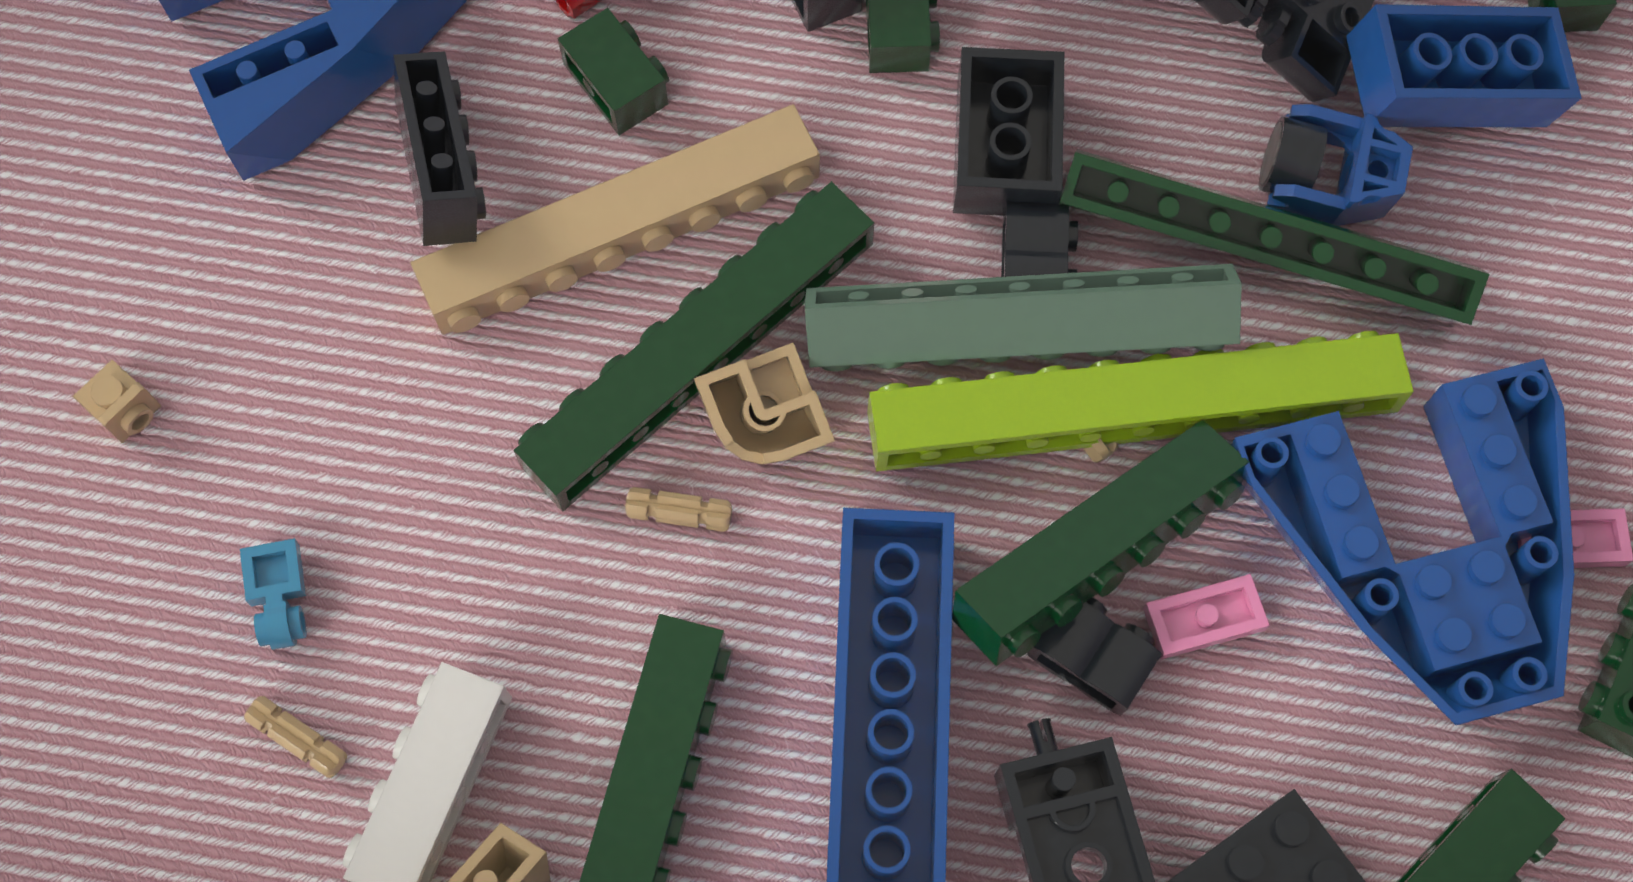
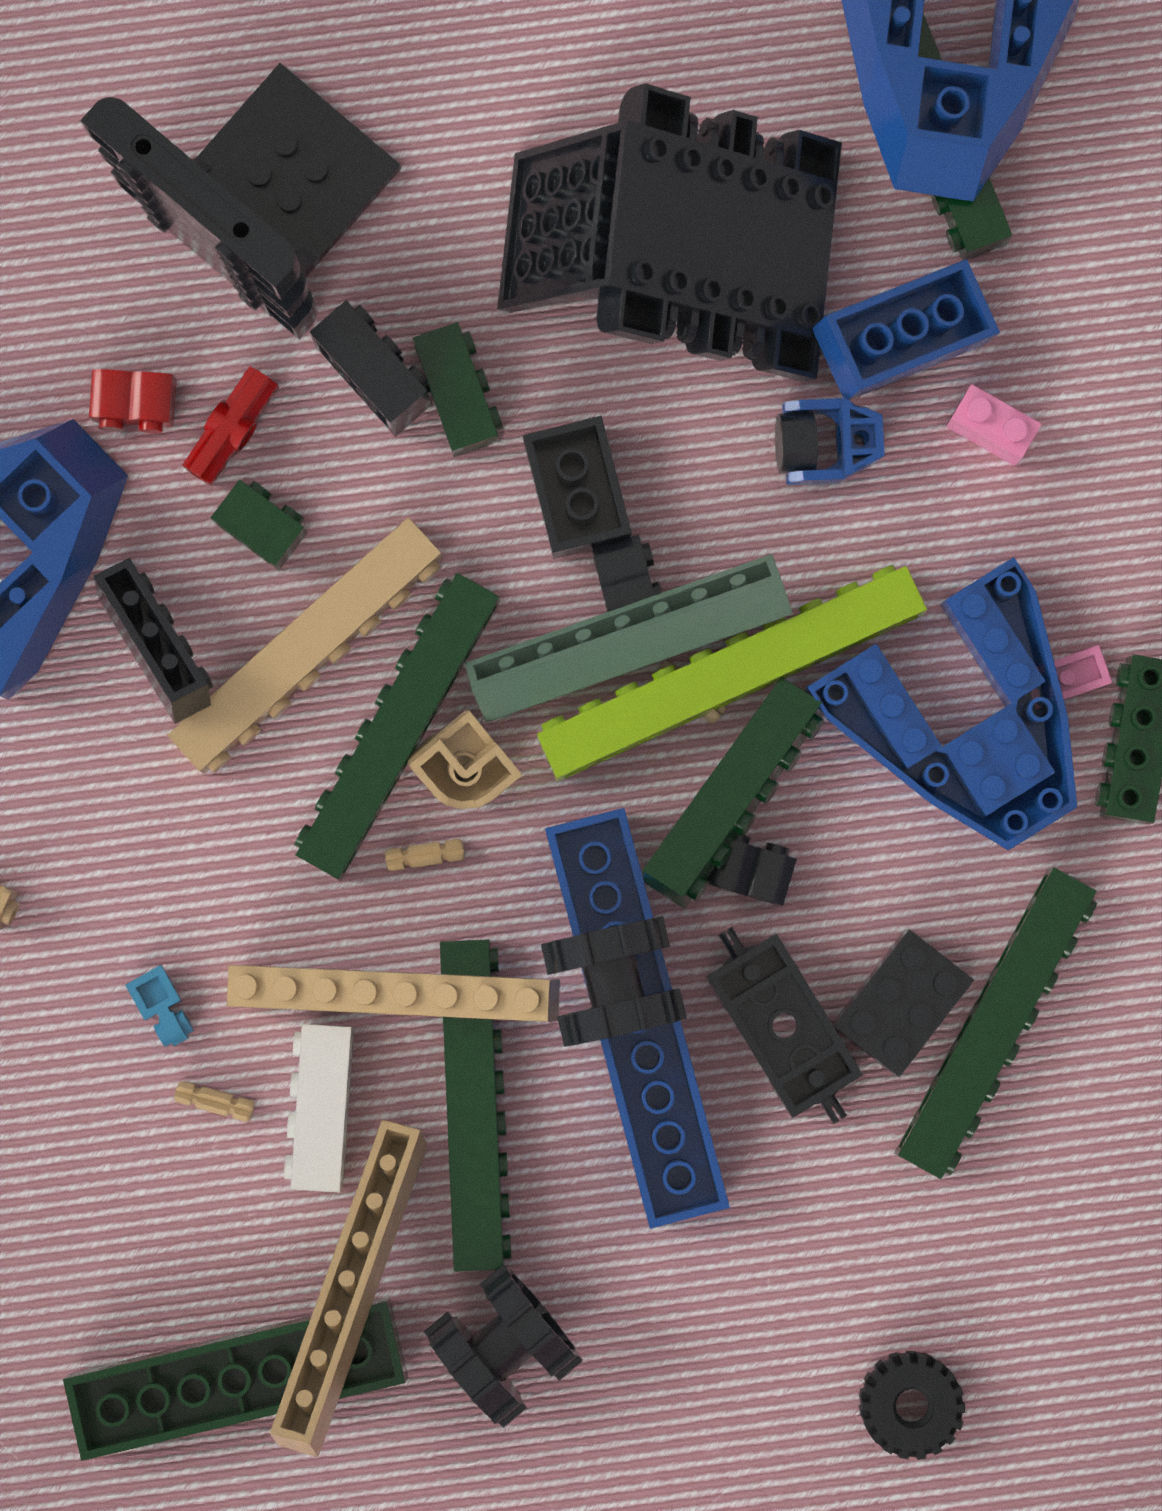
camera: 15 degrees left, 15 degrees up
(580, 657) = (393, 993): none -> tan brick
(876, 680) = (613, 981): none -> black piece
(1206, 616) = (821, 818): bright pink plate -> none
(1275, 237) = (795, 513): dark green brick -> none
(1543, 209) = (993, 425): none -> bright pink brick

